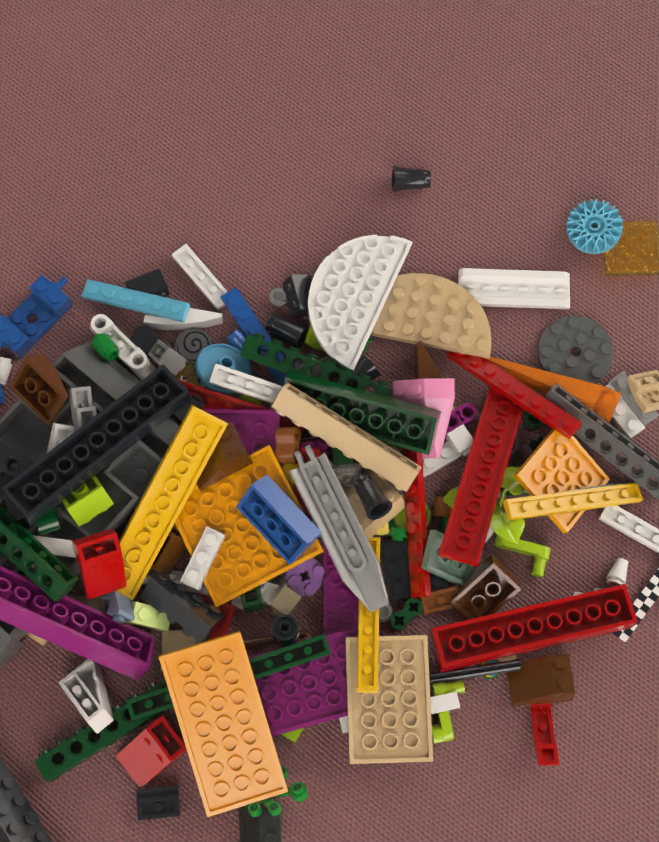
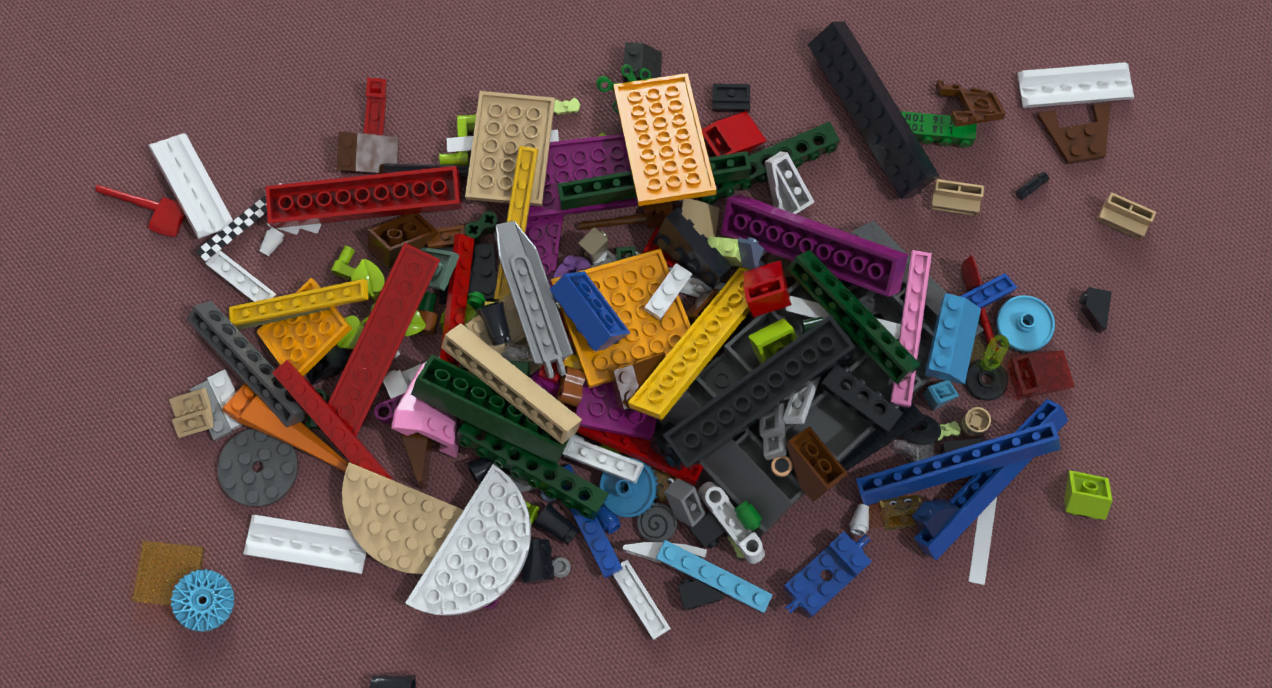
camera: 170 degrees left, 0 degrees up
(73, 381) = (781, 466): none -> tile
(285, 630) = (597, 215): black wheel -> none
(338, 769) = (566, 106): none -> yellowish green piece

